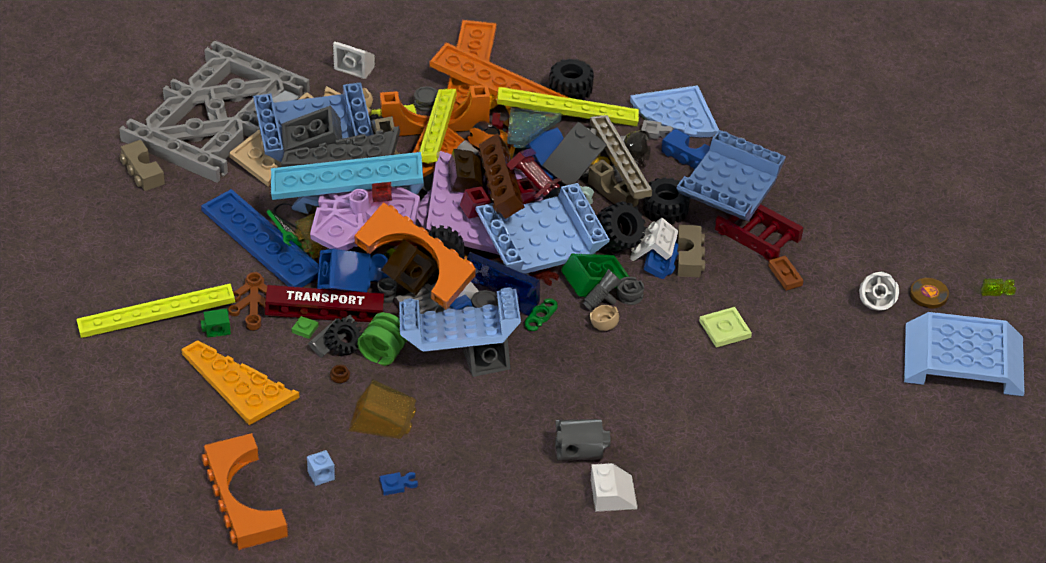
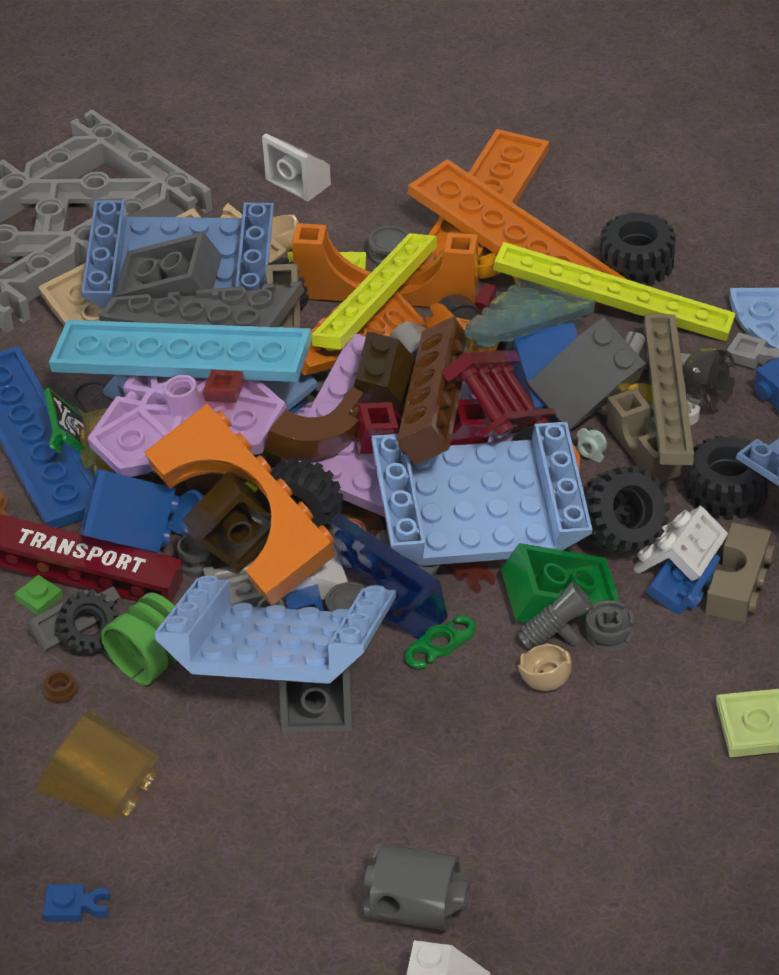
camera: 20 degrees right, 0 degrees up
(442, 212) = (315, 436): none -> reddish brown arch

